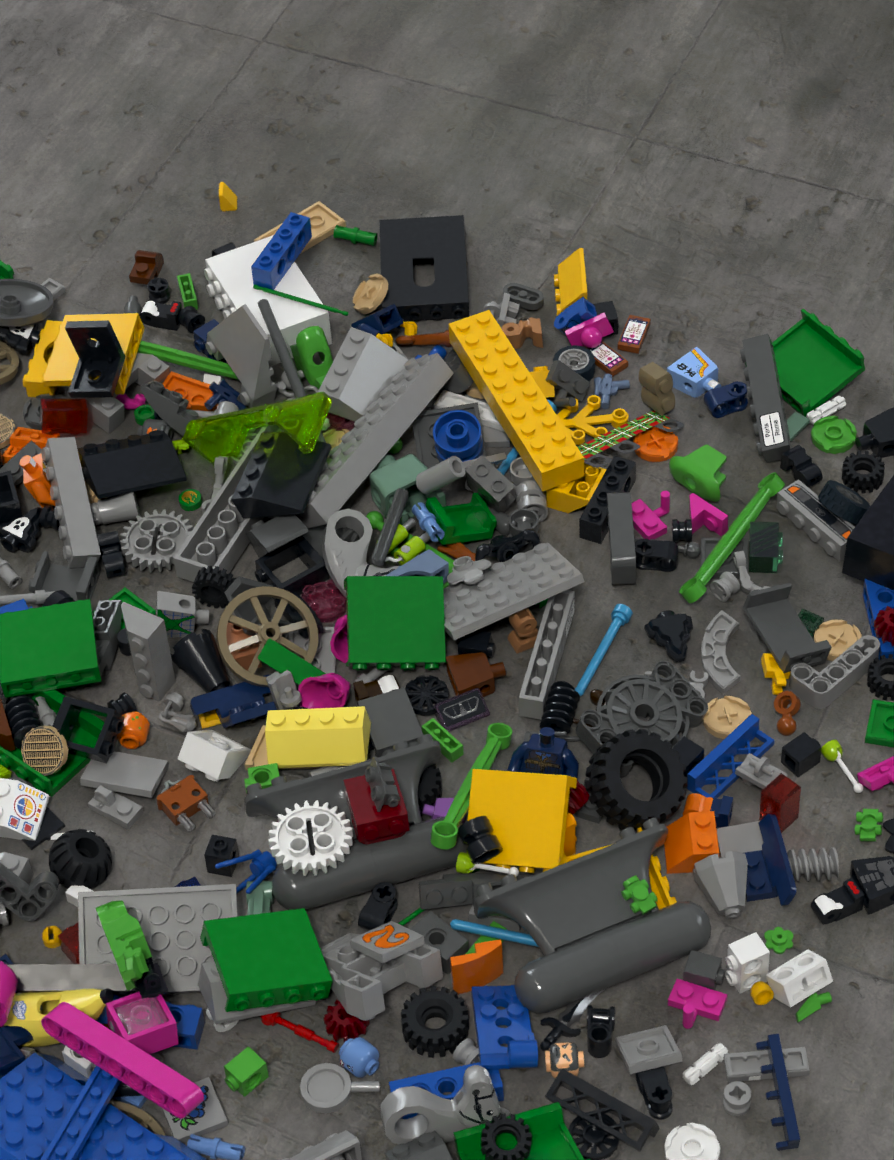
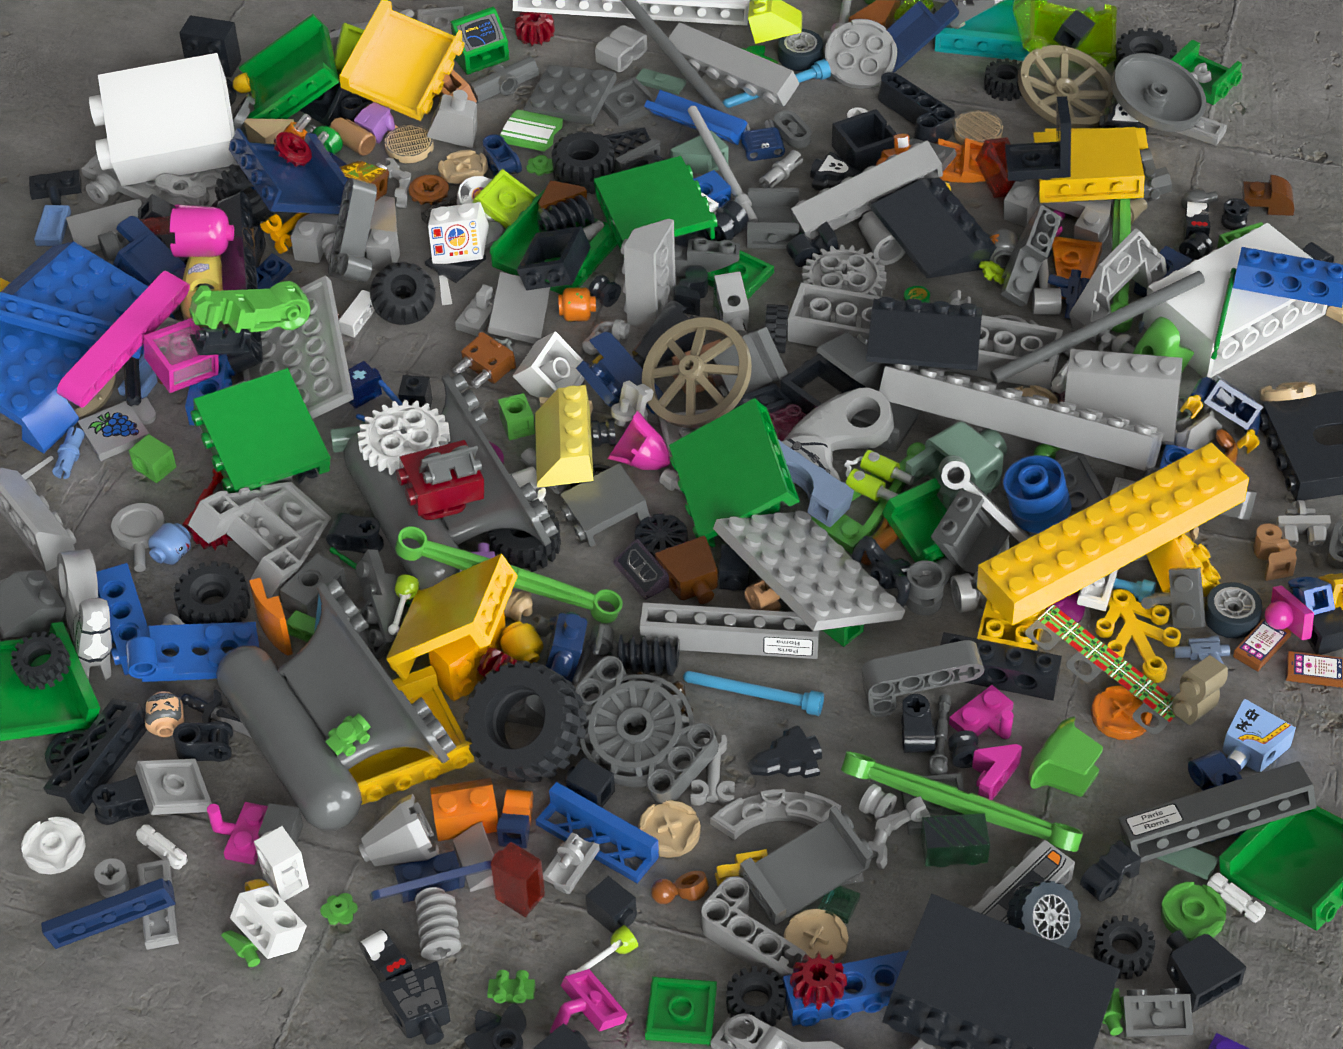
camera: 80 degrees right, 0 degrees up
(44, 750) = (524, 235): tile -> none
(226, 432) = (990, 302): clear neon green windscreen -> none
(283, 659) = (665, 400): green piece -> none
(374, 688) = (654, 489): dark brown leg -> none
(387, 942) = (296, 534): light grey tile -> none
(389, 527) = (882, 451): dark grey axle -> none
(428, 522) = (901, 485): medium blue pin -> none
(450, 746) = (596, 558): bright green piece -> none
(467, 570) = (833, 536): light grey plate -> none
(479, 838) = (418, 583): black wheel -> none

